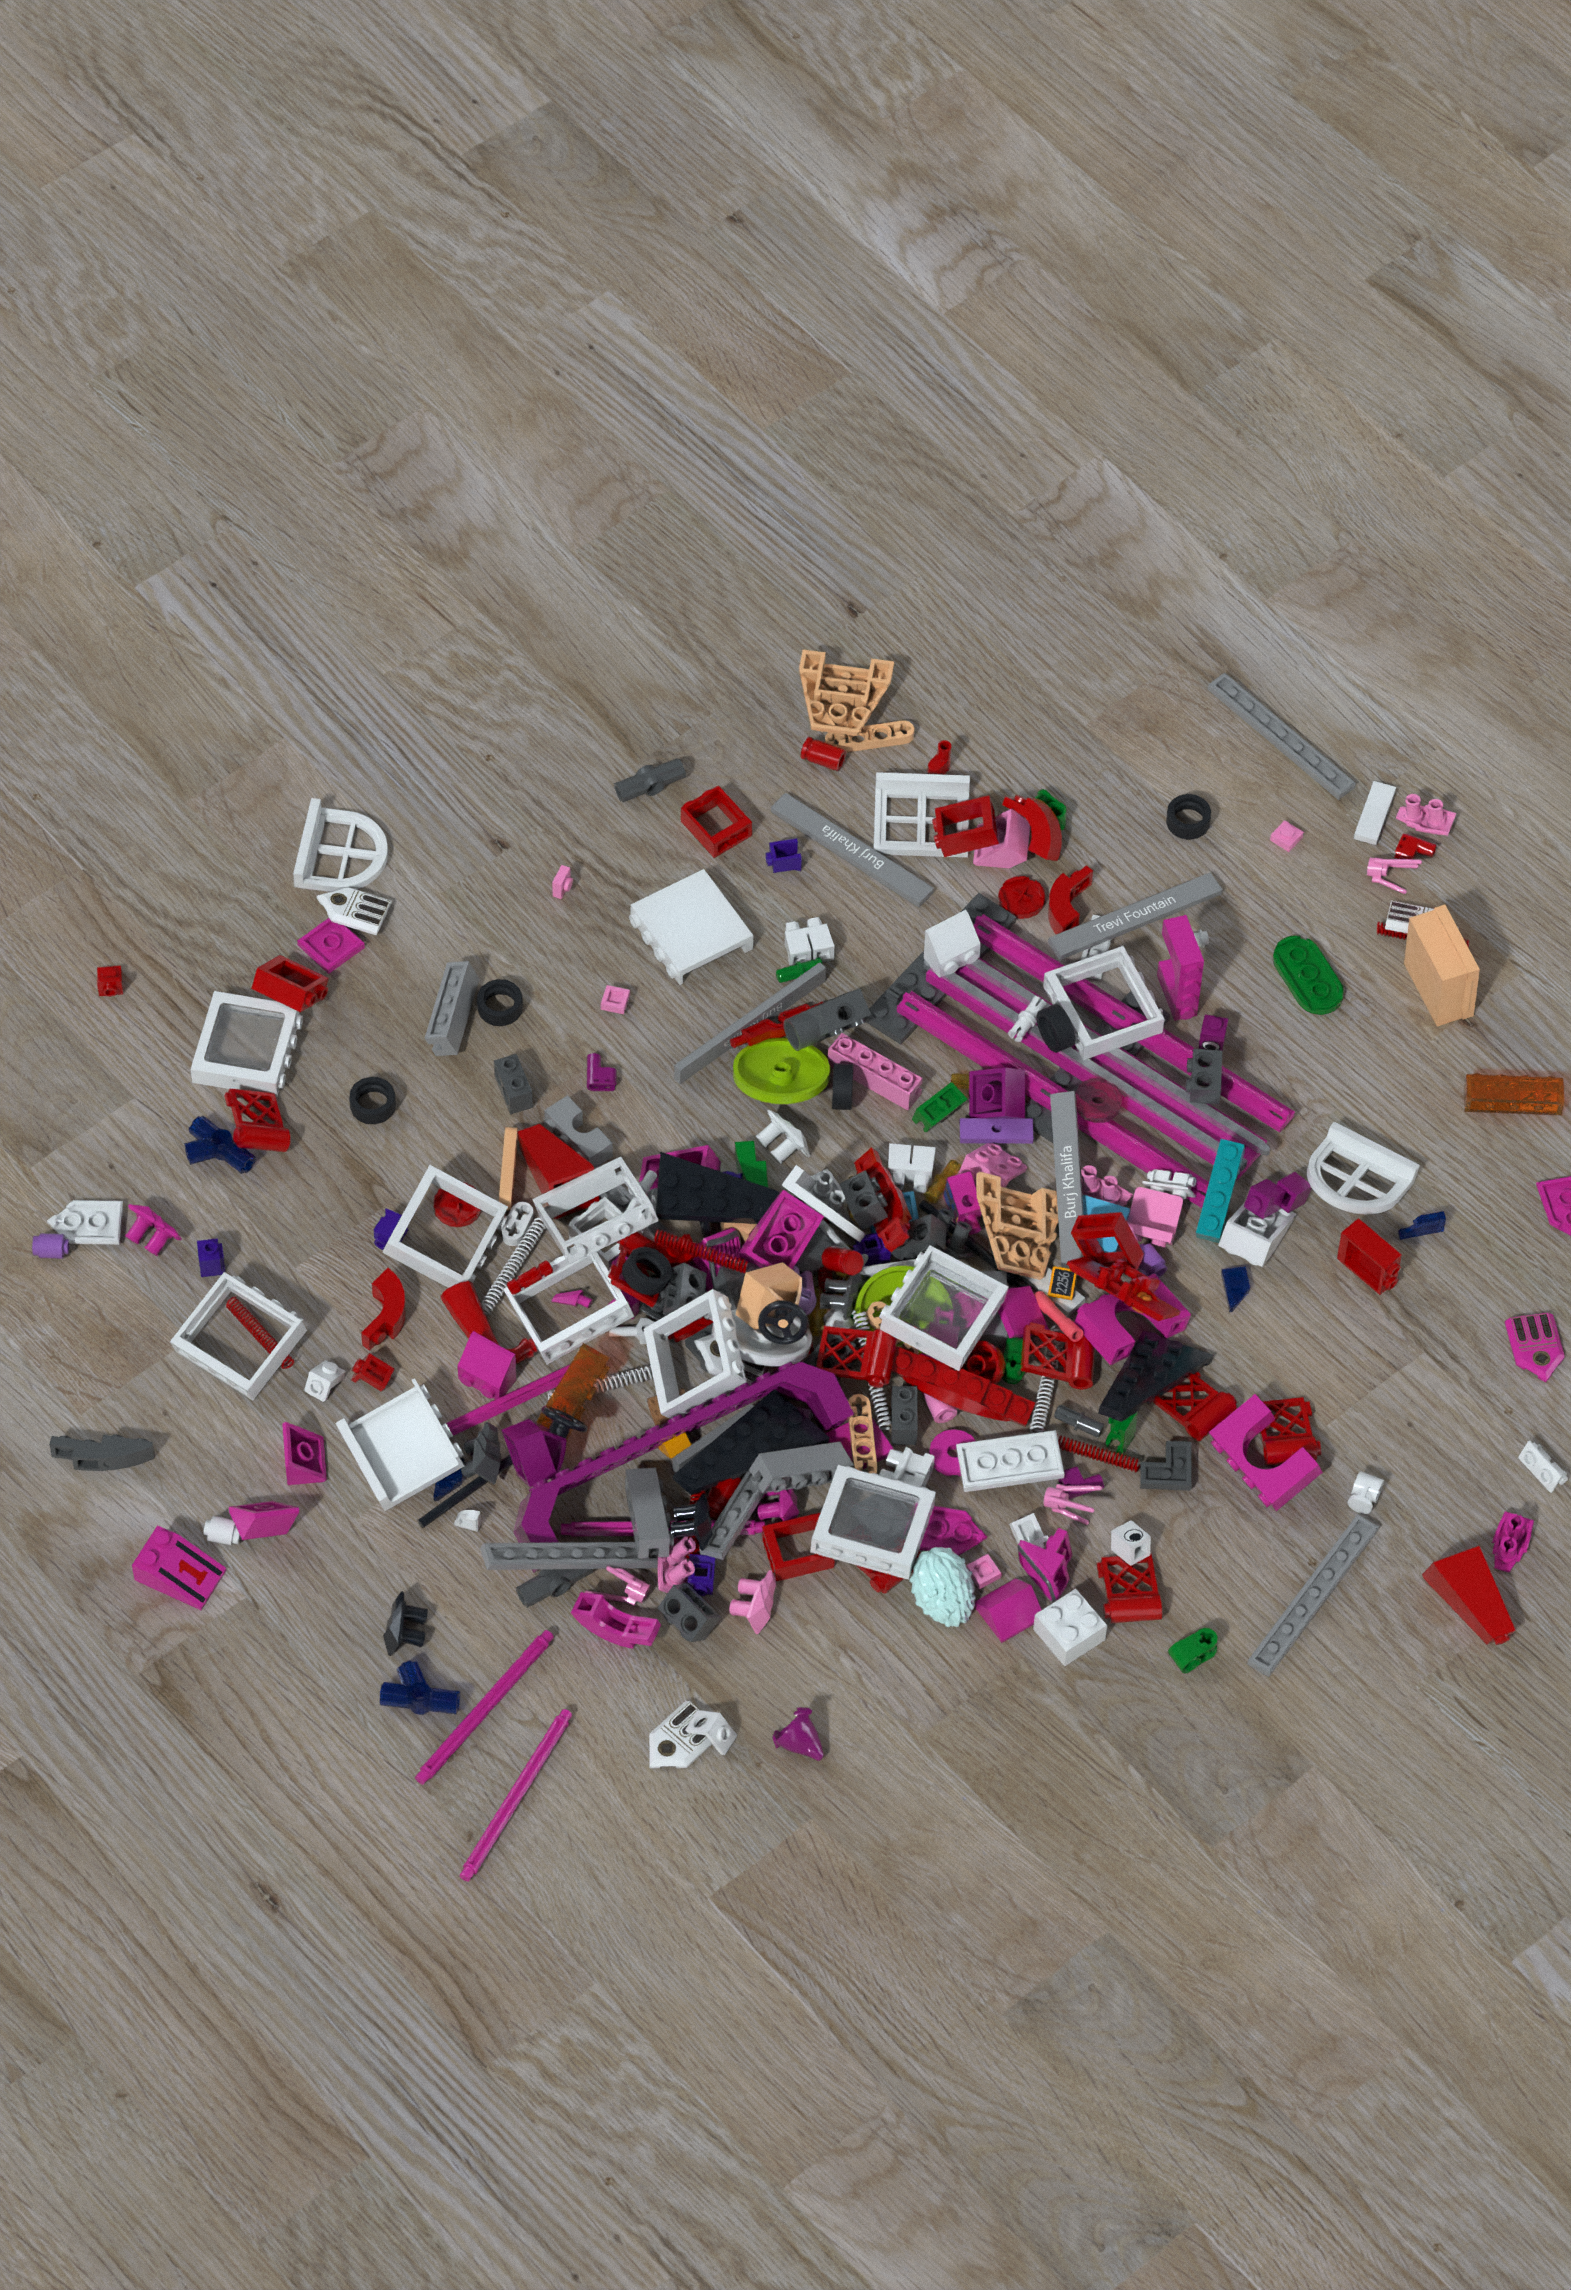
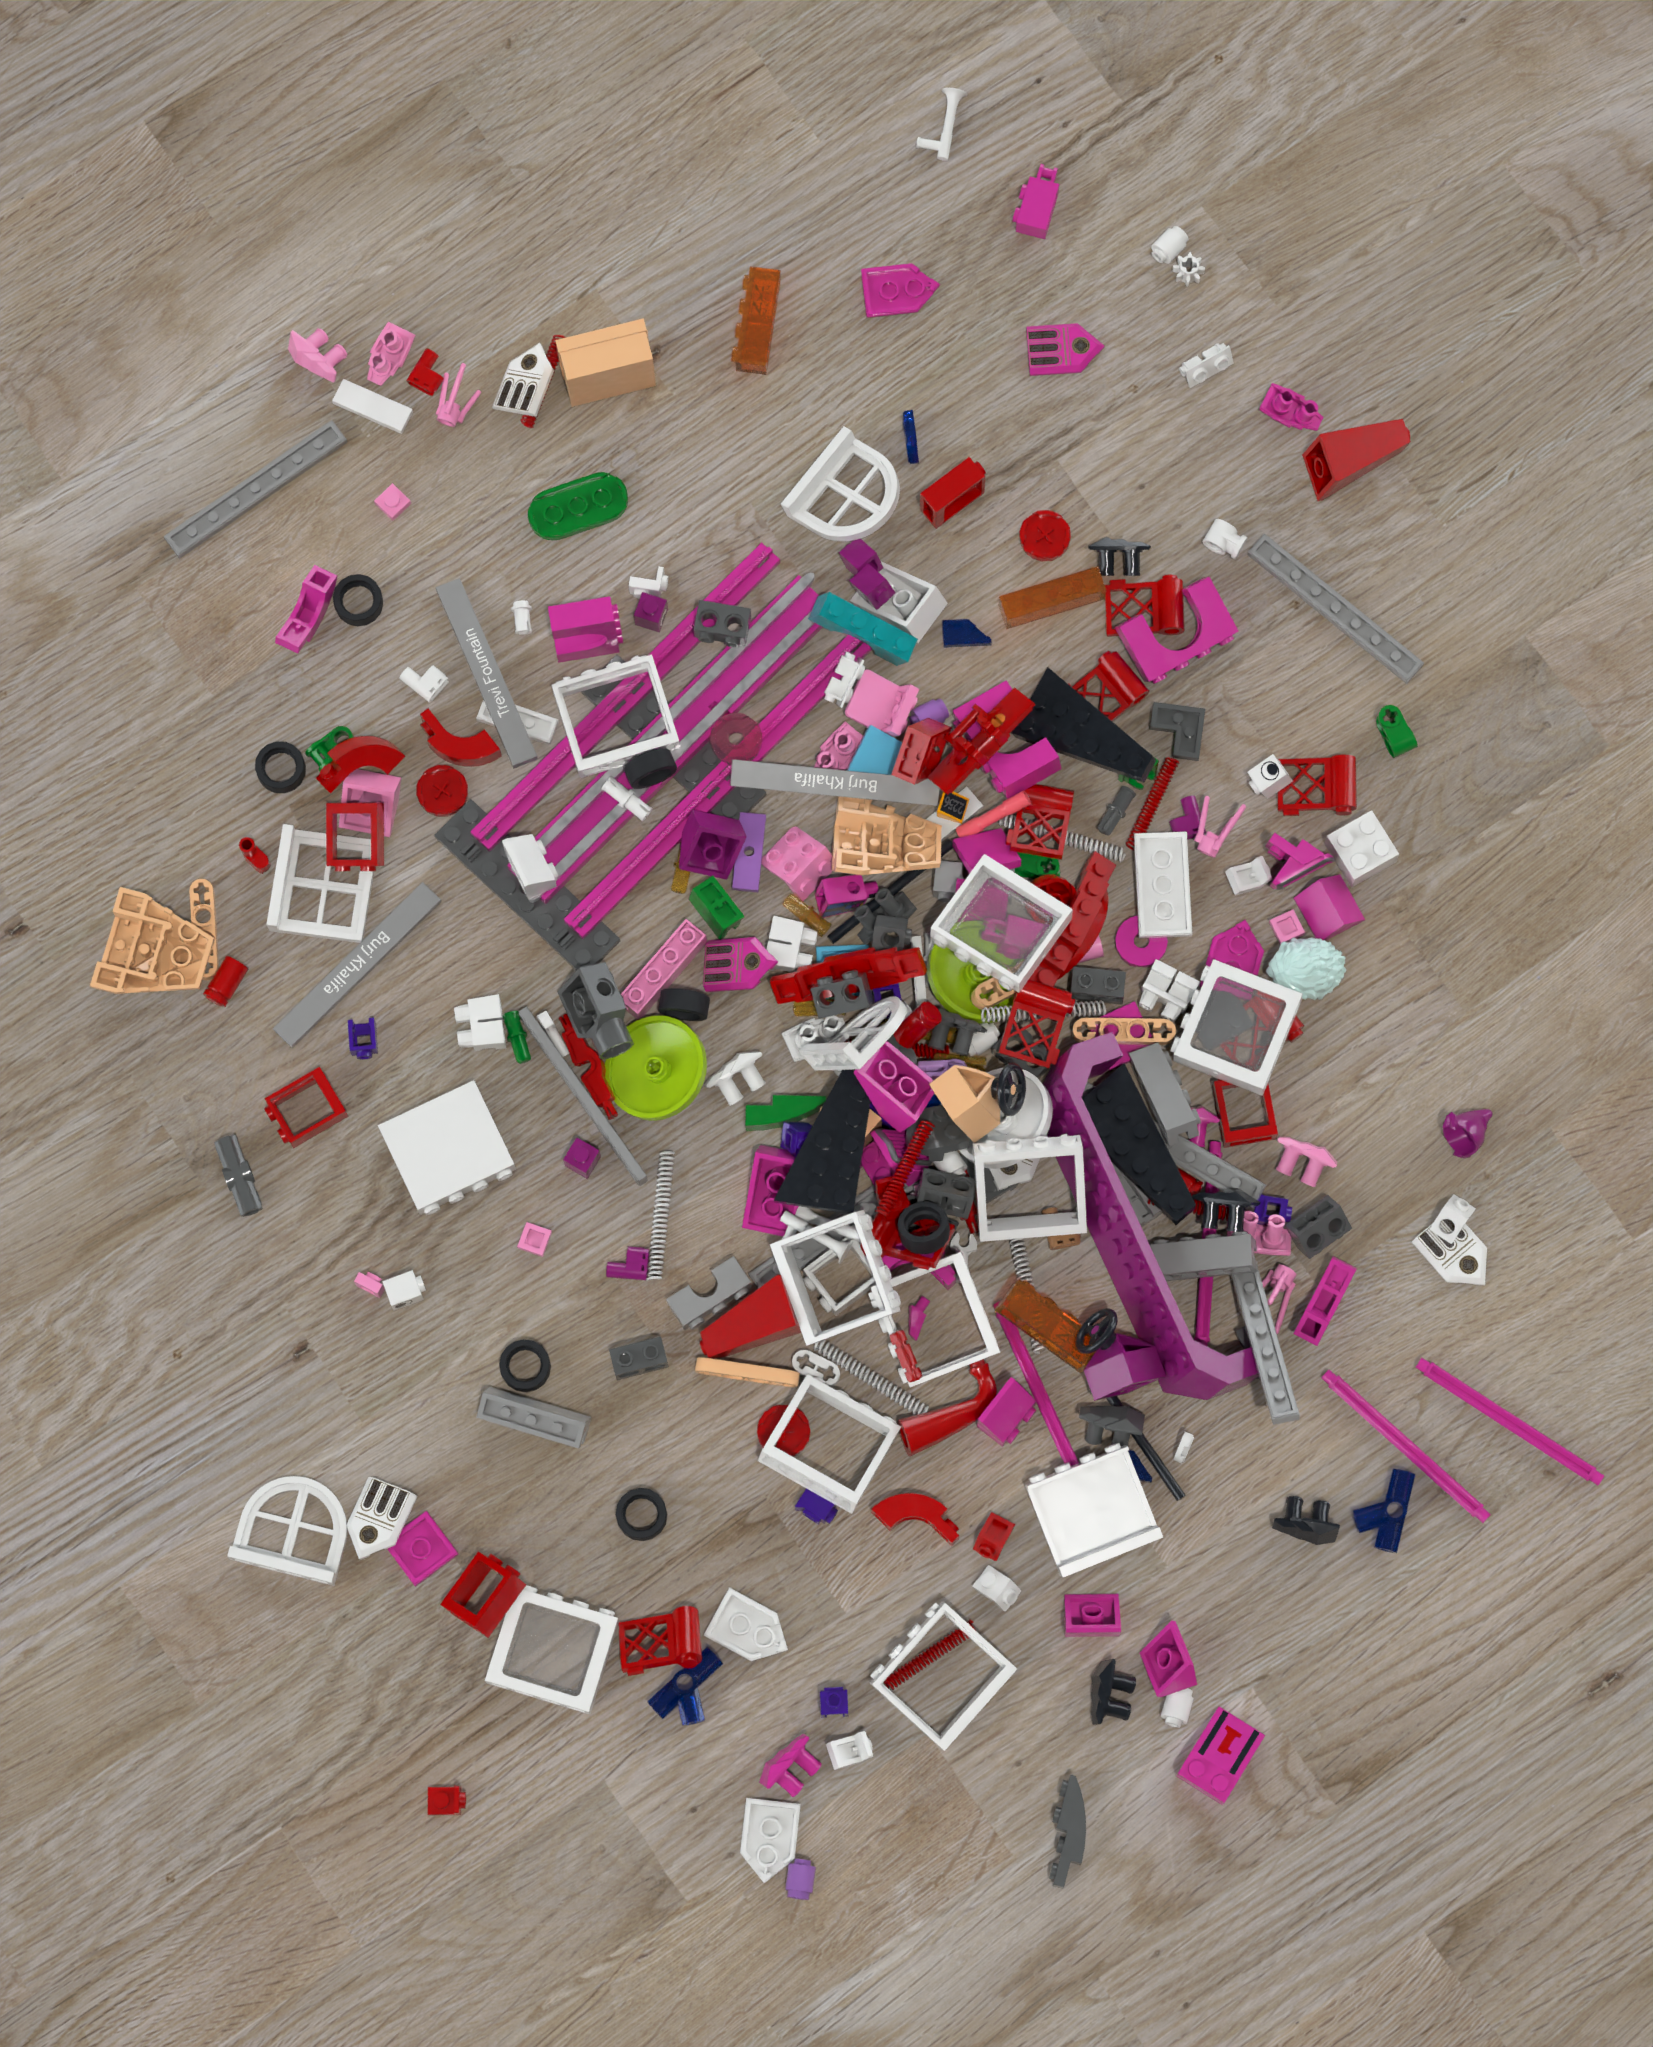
camera: 80 degrees left, 20 degrees up
(167, 1273) = (850, 1750): none -> white bracket
(241, 1466) = (1102, 1684): none -> black connector
(276, 1189) = (746, 1627): none -> white tile
(559, 906) = (404, 1289): none -> white brick
(666, 1092) = (659, 1214): none -> white piece
(692, 1025) = (582, 1158): none -> magenta brick
(814, 990) = (549, 1027): none -> white bar
(887, 1125) = (735, 964): none -> dark pink tile
(1028, 761) = (275, 748): none -> black tyre
(1119, 875) = (426, 686): none -> white piece
(1170, 780) = (309, 610): none -> dark pink arch
(1240, 1038) = (649, 586): none -> white bracket
(1281, 1350) = (1052, 597): none -> clear orange brick
(1337, 1391) = (1106, 549): none -> black connector
(1344, 1345) = (1045, 535): none -> red tile
(1416, 753) = (306, 354): none -> bright pink connector

